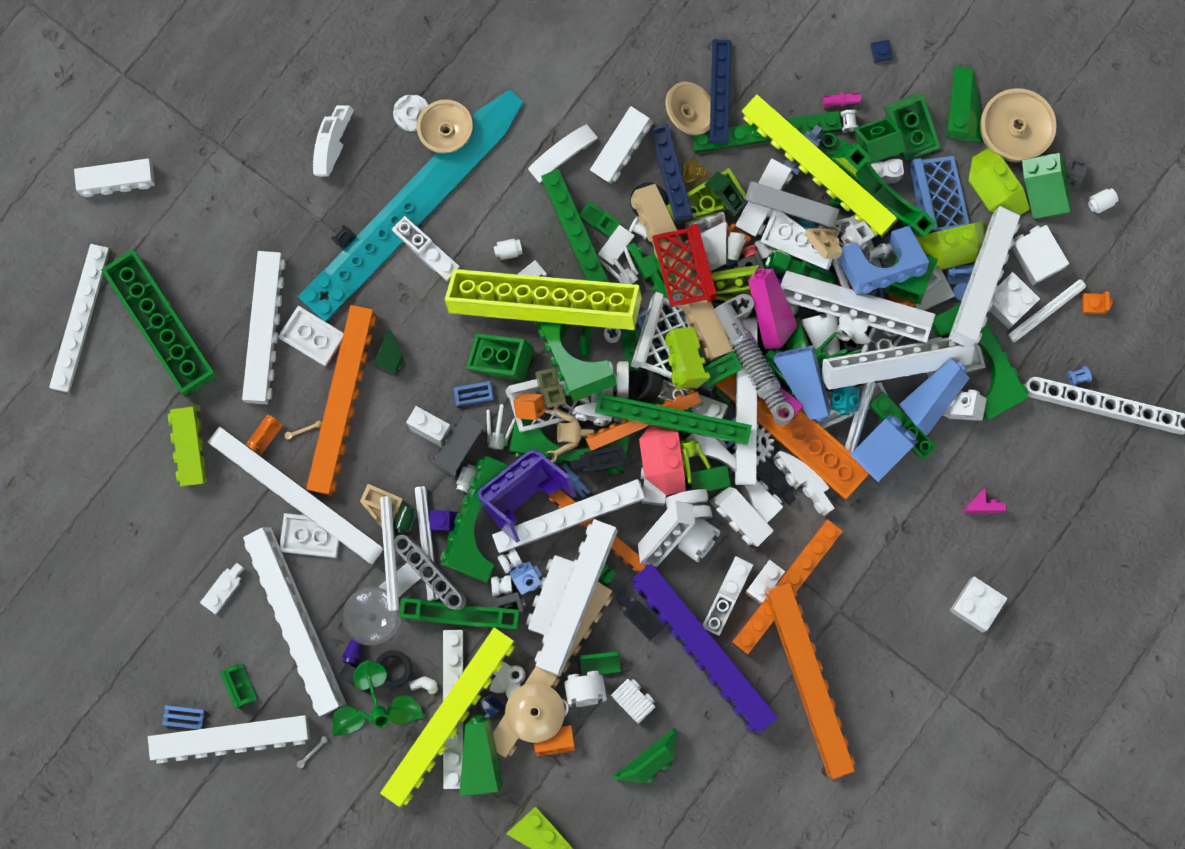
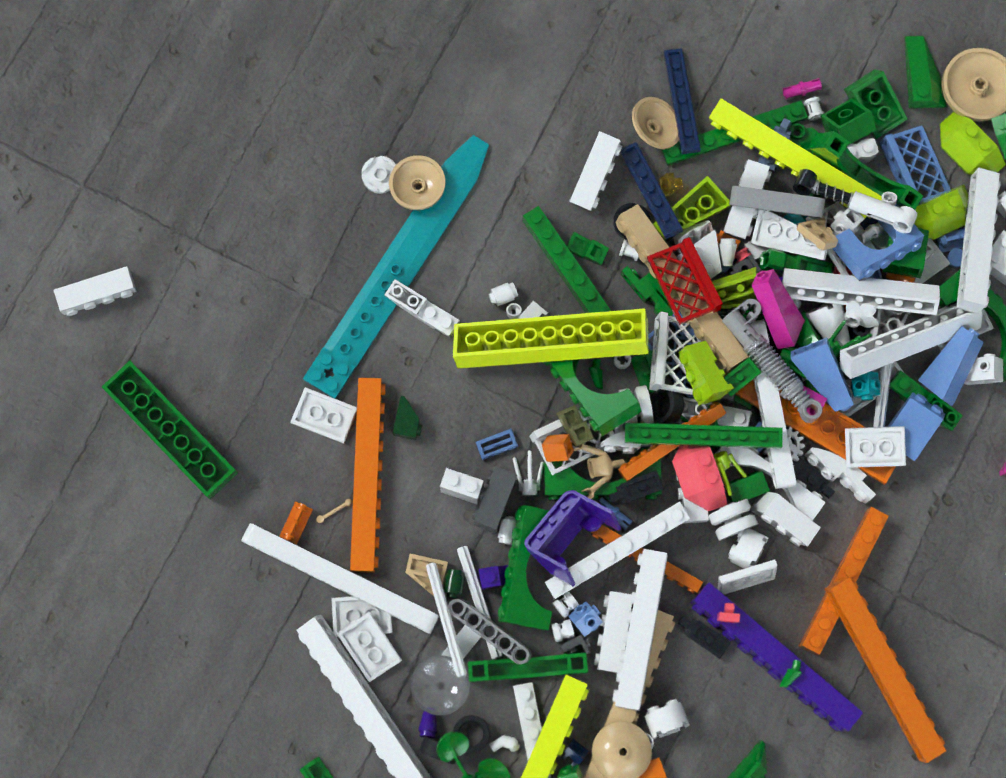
camera: 15 degrees left, 0 degrees up
(79, 318) = (87, 439): white plate -> none
(188, 445) = (222, 547): lime wedge -> none
(222, 589) = (284, 685): white hinge -> none
(263, 327) = (274, 416): white brick -> none
(311, 566) = (369, 646): none -> white tile
(327, 142) = (304, 221): white slope -> none
(343, 237) = (336, 310): black bush -> none
(500, 357) = (516, 403): green slope -> none
(505, 682) = (584, 726): white plate -> none
(512, 263) = (513, 306): none -> white hinge
(562, 151) = (537, 188): white slope -> none
(604, 663) = (673, 690): green panel -> none
(610, 575) = (664, 606): green wheel -> none
(614, 245) = (608, 271): white tile -> none
(626, 276) = (626, 300): white plant -> none
(633, 700) = (715, 721): white brick -> none
(662, 598) = (728, 614): none -> coral tile
(666, 533) = (718, 550): white brick -> none
(691, 566) = (747, 577): none -> white tile
(714, 667) = (791, 674): none -> green bar
(725, 192) = (709, 201): dark green slope -> none
(727, 595) = (787, 599): white slope -> none
(766, 579) = (821, 577): white brick -> none
(841, 461) = (875, 446): none -> white tile
(881, 51) = (831, 34): dark blue plate -> none
(901, 221) = (889, 197): none -> white hinge
(908, 240) = (900, 217): none -> piece

